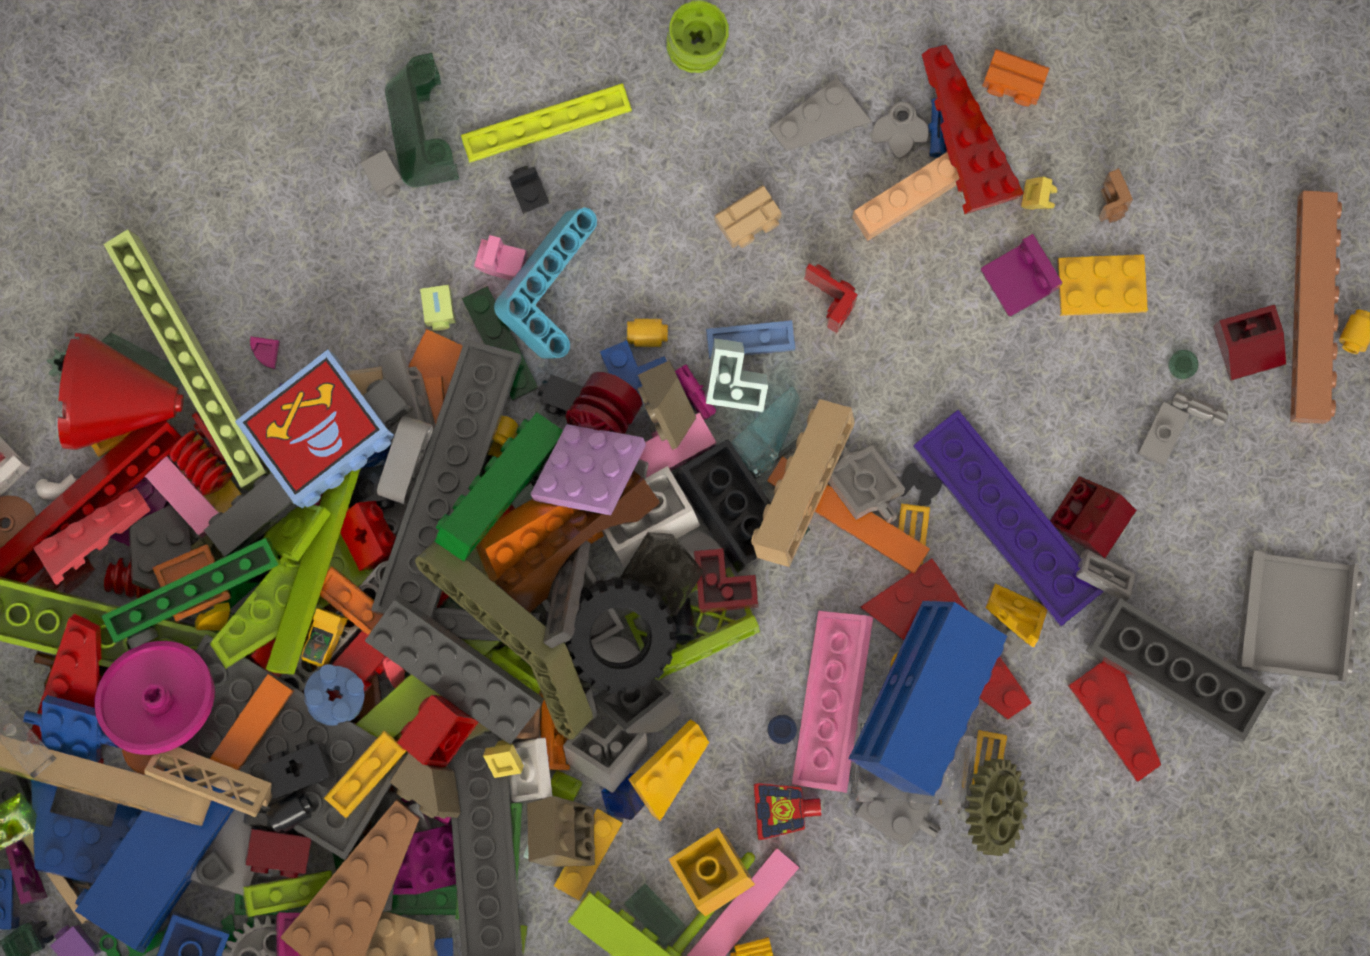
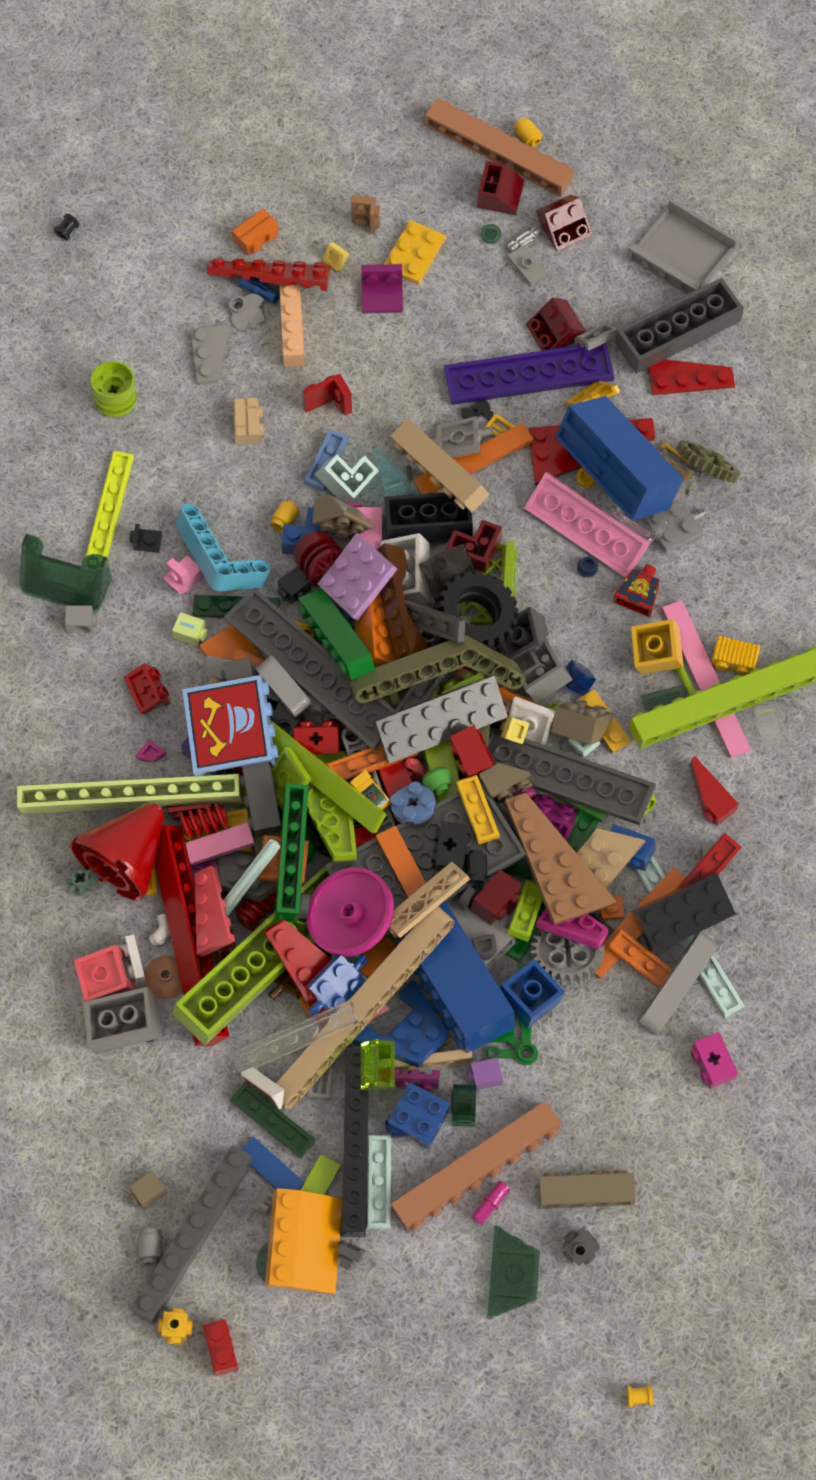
camera: 65 degrees left, 15 degrees down
(142, 558) = (250, 875): none -> light aqua axle
(213, 619) = (317, 859): yellow tile -> none
(339, 301) = (147, 688): none -> red bracket
(379, 708) = (438, 780): none -> bright green cone
(669, 768) = (576, 644): yellow wing -> none
(1251, 447) = (564, 222): none -> slope

